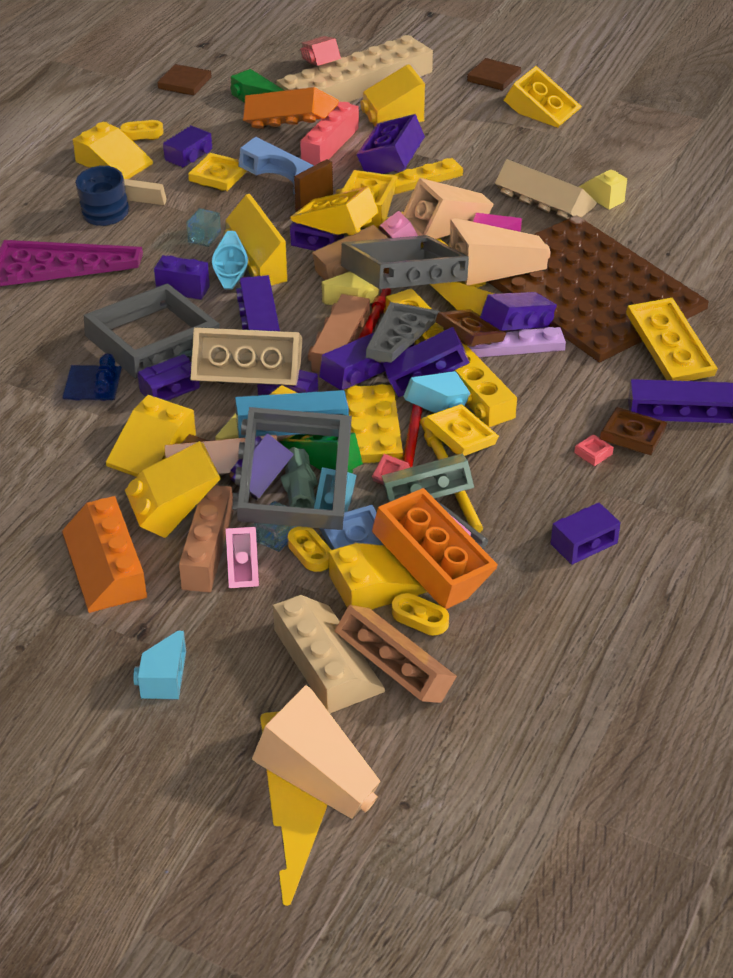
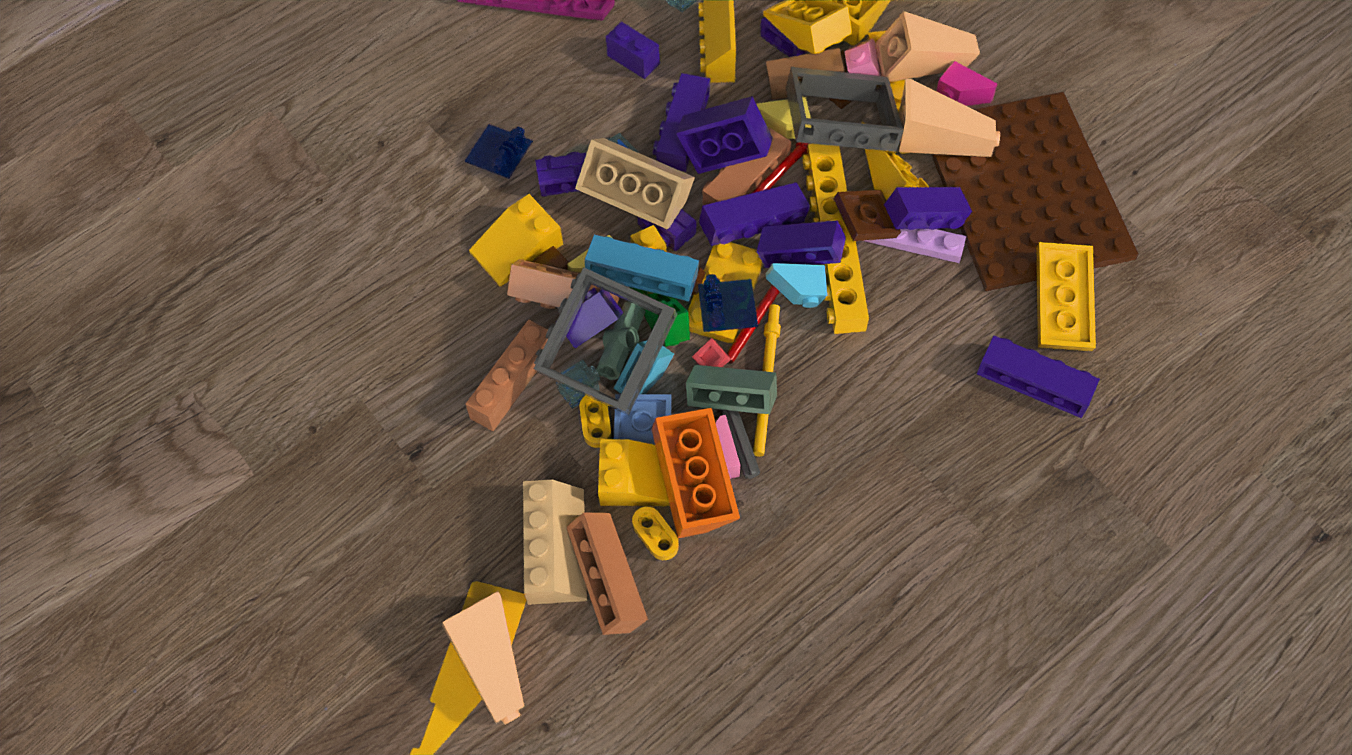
camera: 25 degrees right, 20 degrees up
(99, 322) = (575, 139): dark grey window -> none
(104, 556) = (418, 361): orange slope -> none
(162, 668) = (410, 504): medium azure slope -> none
(171, 489) = (497, 315): yellow slope -> none
(230, 260) = (681, 48): medium azure hat -> none
(242, 557) = (531, 407): bright pink slope -> none
(312, 300) = (724, 135): none -> dark purple brick
(383, 424) = (727, 304): none -> clear blue hinge
(398, 330) = (791, 198): dark grey wing -> none
(460, 430) = (797, 335): yellow plate -> none
(543, 190) = (1045, 50): tan slope -> none
(585, 533) = (852, 500): dark purple brick -> none
(593, 450) = (918, 400): coral tile -> none
(607, 188) = (1112, 65): light yellow slope -> none
(633, 431) = (967, 394): reddish brown tile -> none

